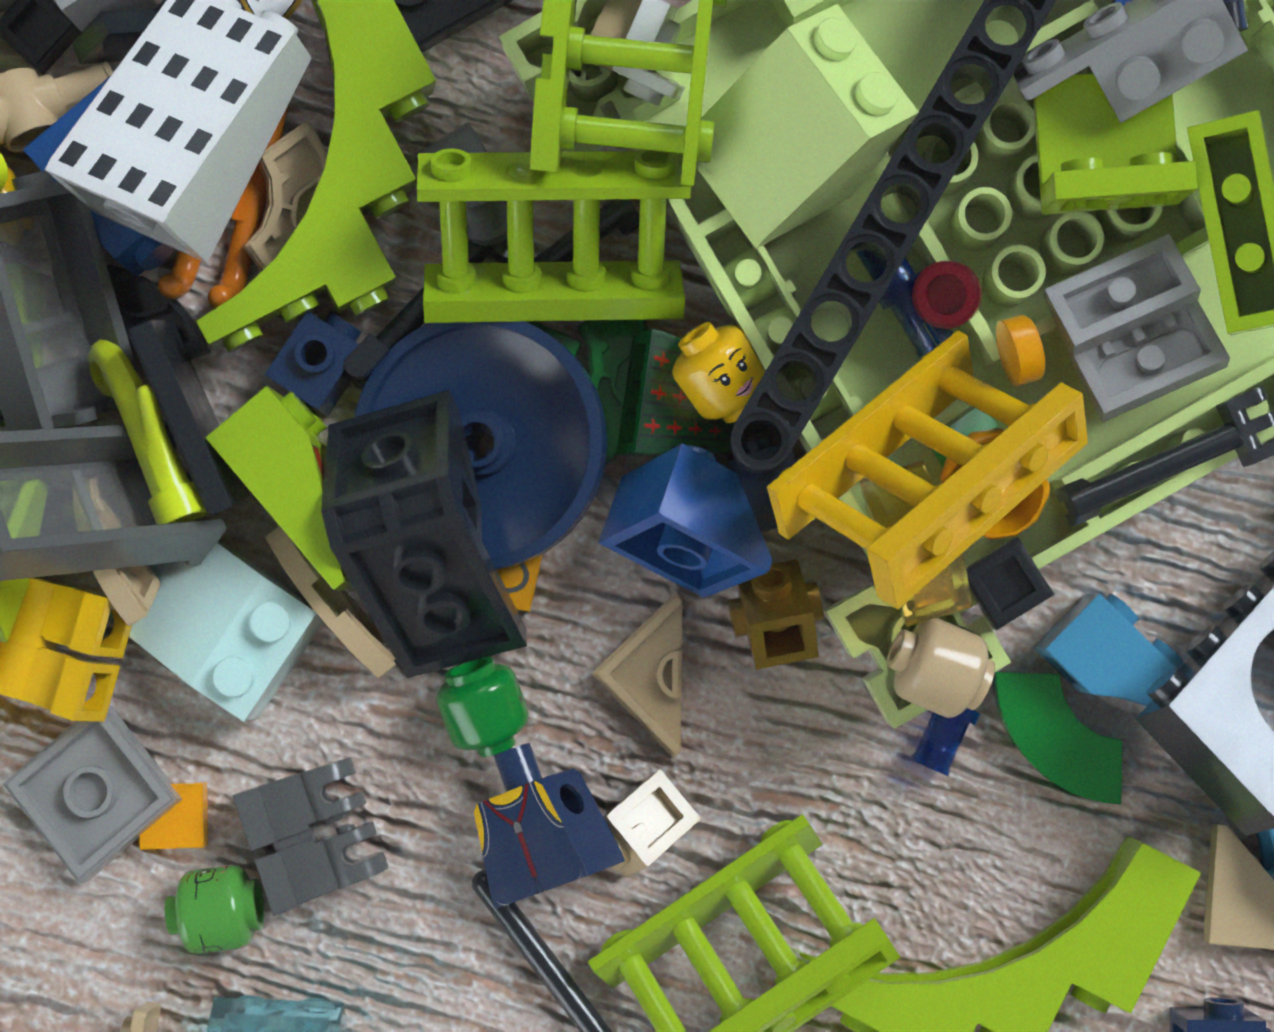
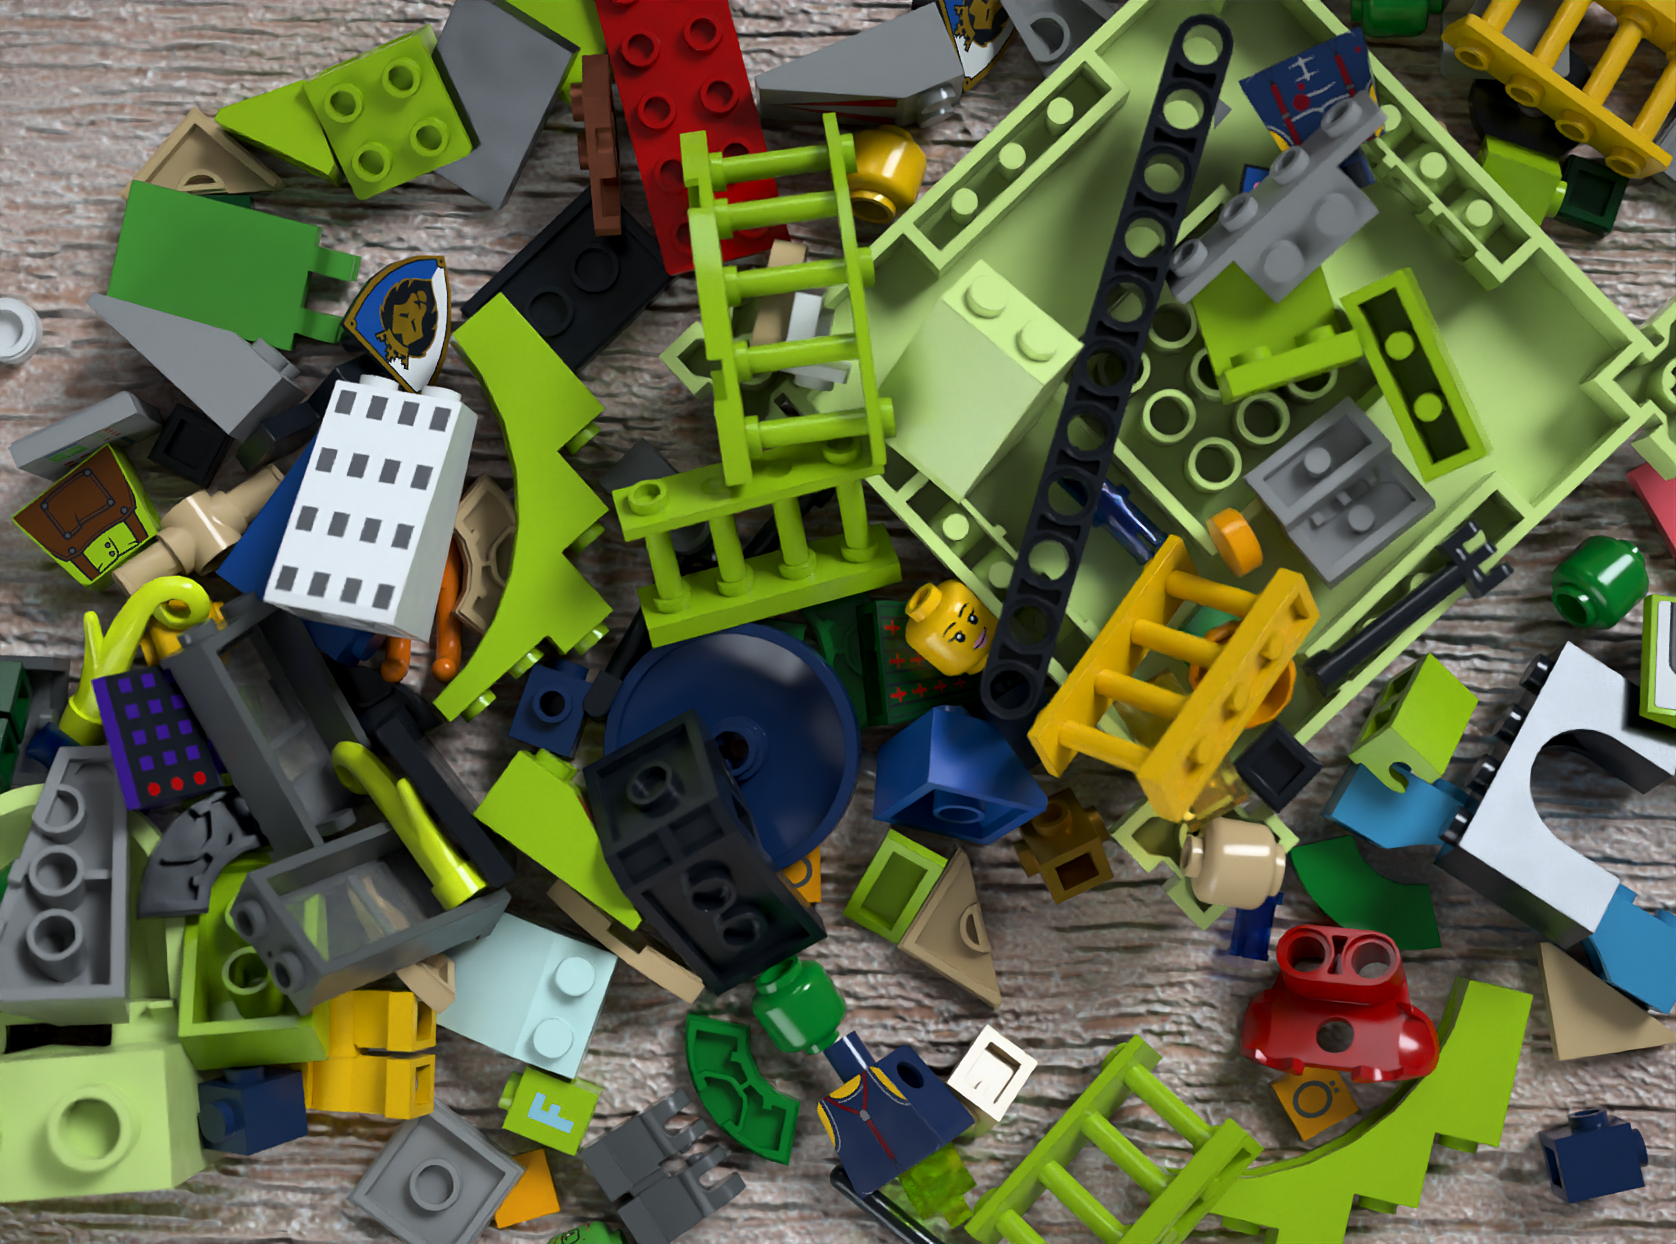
camera: 20 degrees left, 0 degrees up
(217, 745) = (549, 1107): none -> lime brick
(402, 772) = (736, 1091): none -> green tile
(575, 913) = (940, 1185): none -> clear neon green tile
(603, 613) = (894, 885): none -> lime slope
(947, 294) = (1152, 503): dark red tile -> none
(960, 918) = (1314, 1100): none -> light orange tile
(1051, 875) = (1390, 1033): none -> red piece
(1152, 576) = (1415, 723): none -> lime hinge

